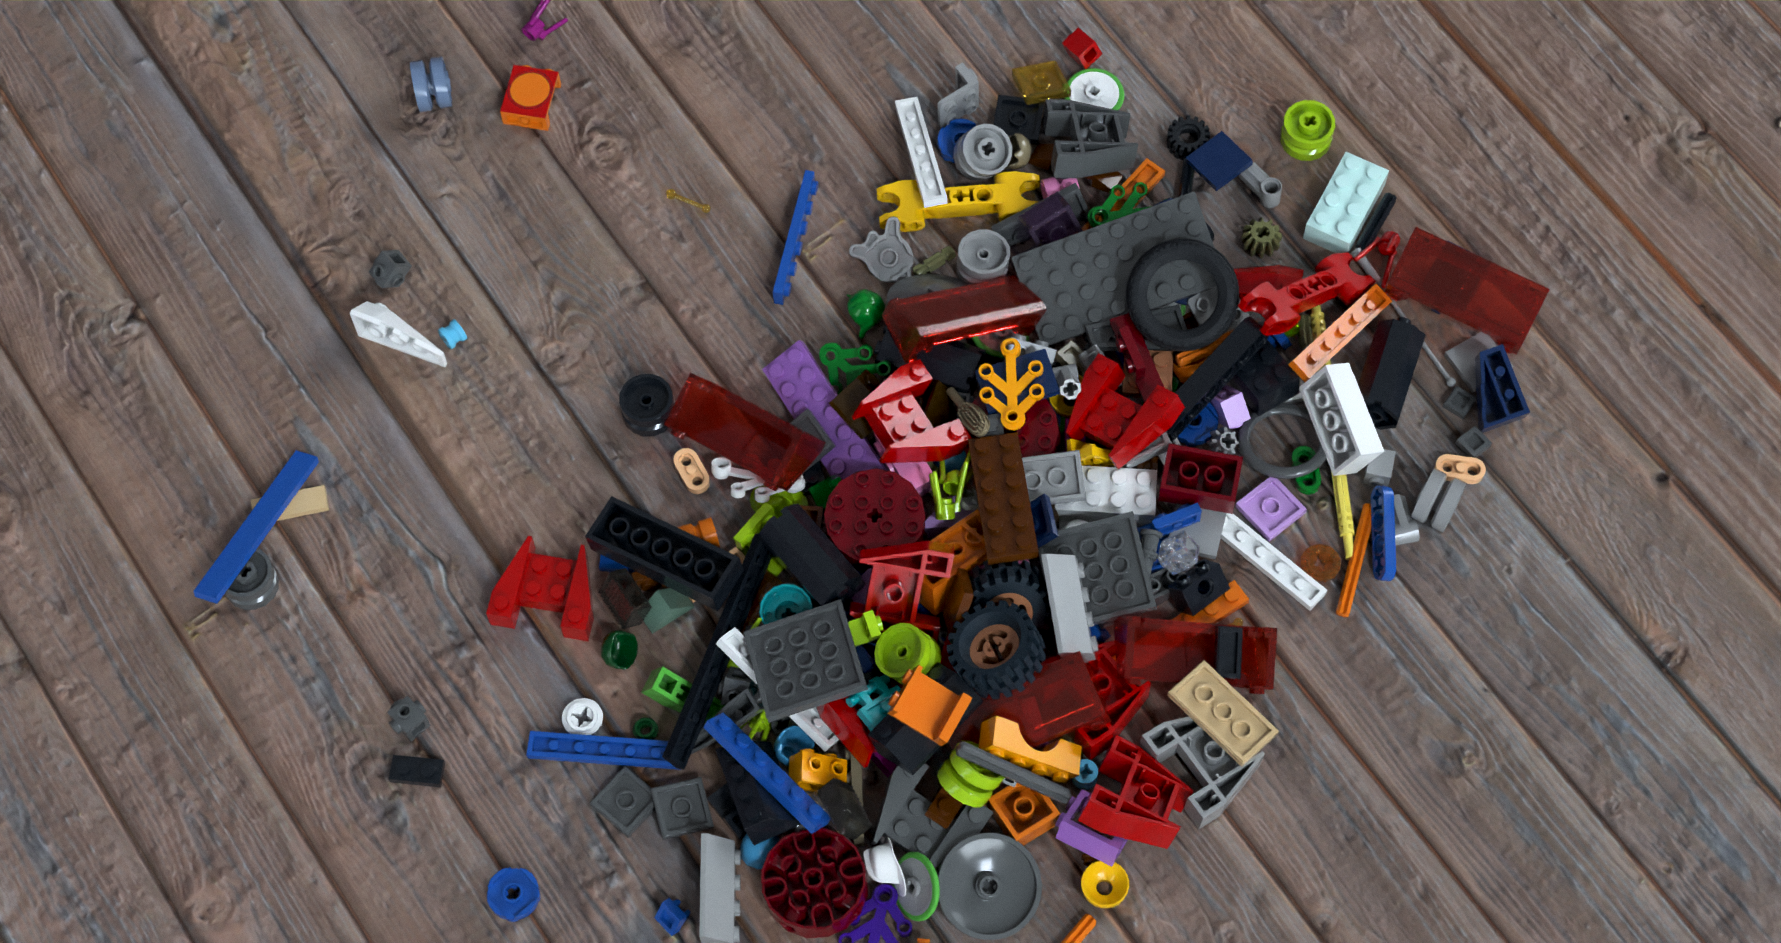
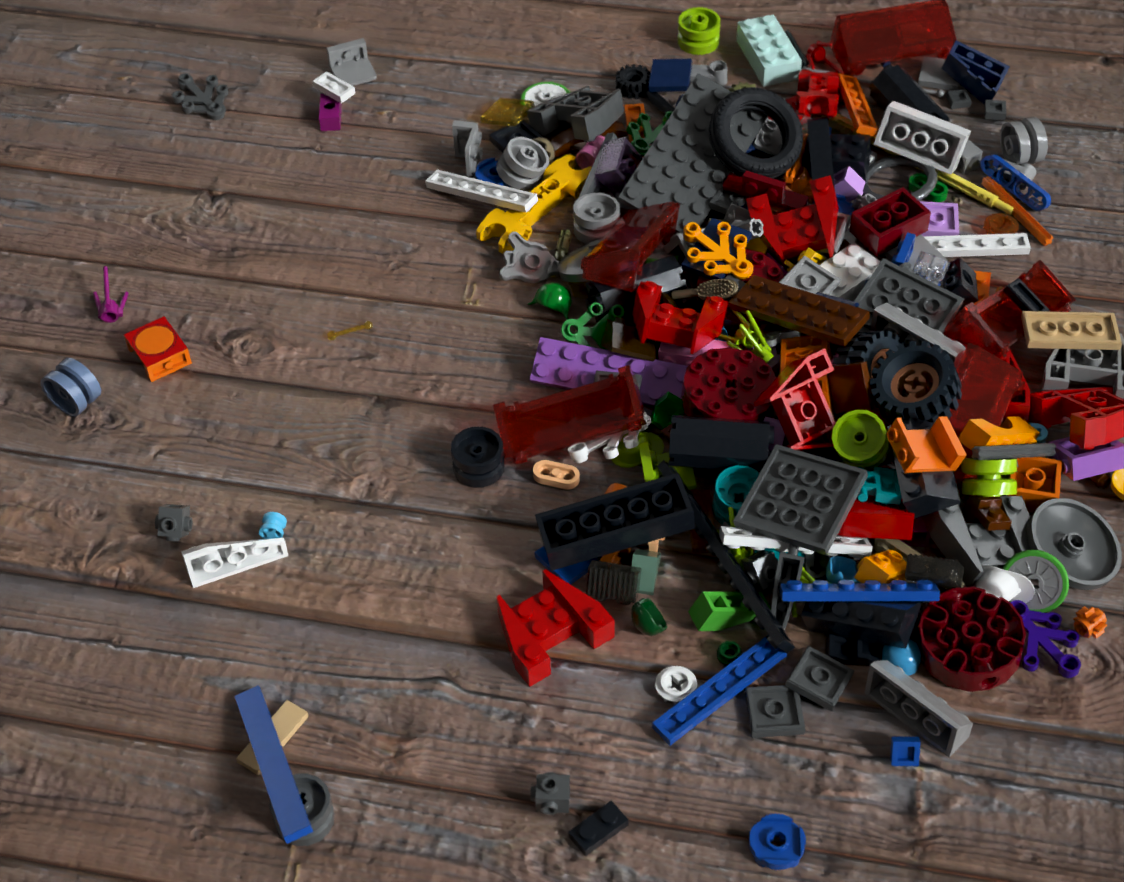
camera: 45 degrees left, 15 degrees down
(793, 245) = (458, 300): blue plate -> none
(866, 628) = (818, 441): lime bracket -> none
(1082, 48) = (511, 78): red brick -> none
(1460, 466) = (995, 126): light nougat plate -> none

